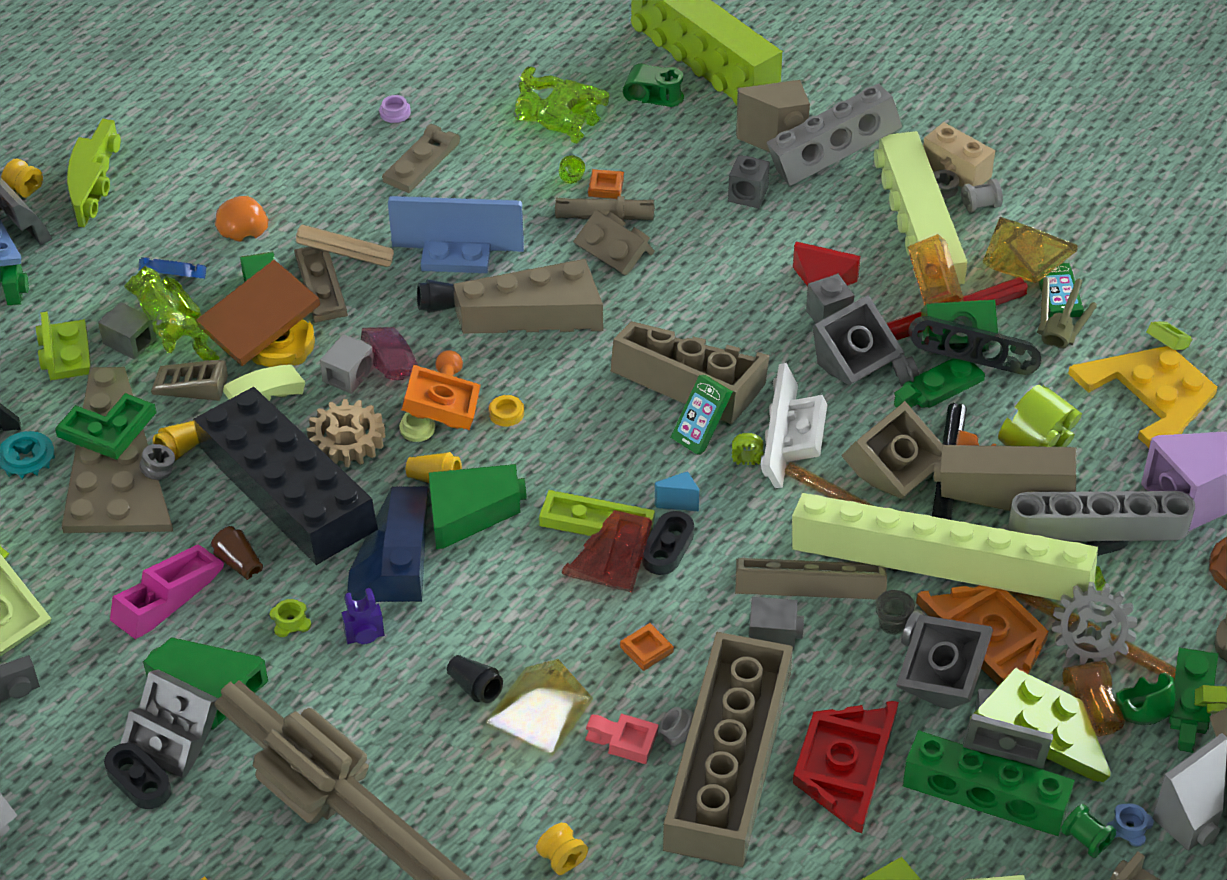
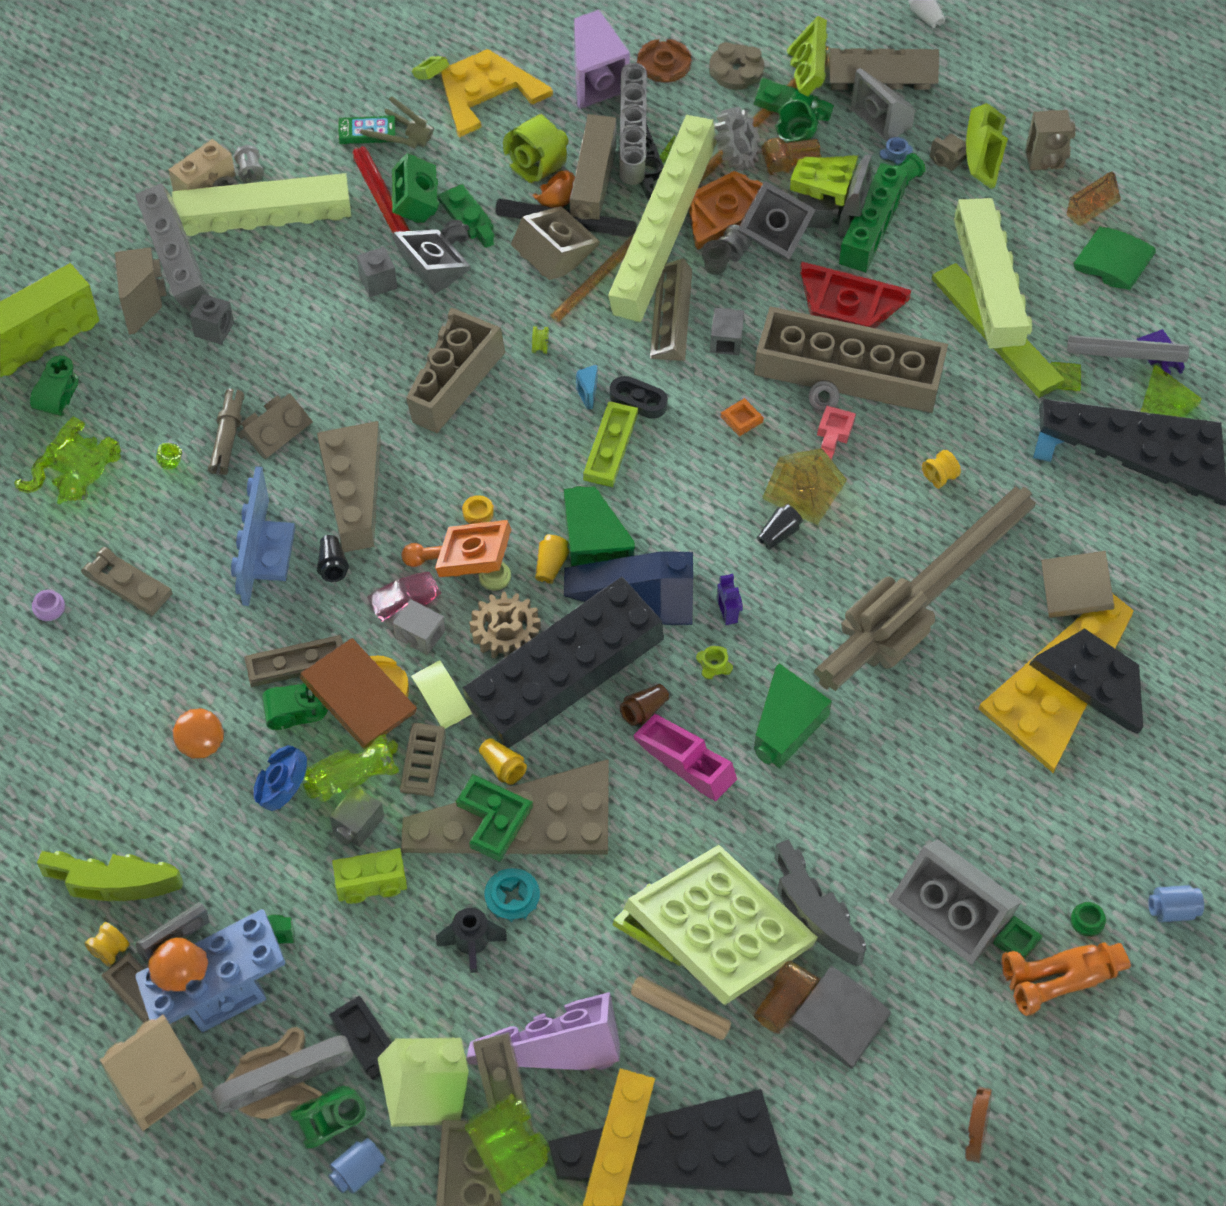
camera: 90 degrees left, 10 degrees up
(140, 777) = (882, 760): black plate -> none
(151, 468) = (532, 766): flat silver bush -> none
(171, 722) = (839, 734): flat silver slope -> none
(344, 245) = (256, 636): tan axle -> none
(605, 184) = (187, 432): orange tile -> none
(613, 553) = (655, 429): clear red wing -> none
(701, 414) = (510, 360): tile -> none
(794, 427) = (518, 304): white bracket -> none
(817, 263) = (329, 277): red slope -> none
(935, 271) = (358, 193): clear orange slope -> none
(973, 350) = (443, 179): black beam -> none
(1025, 251) = (326, 141): clear yellow slope -> none

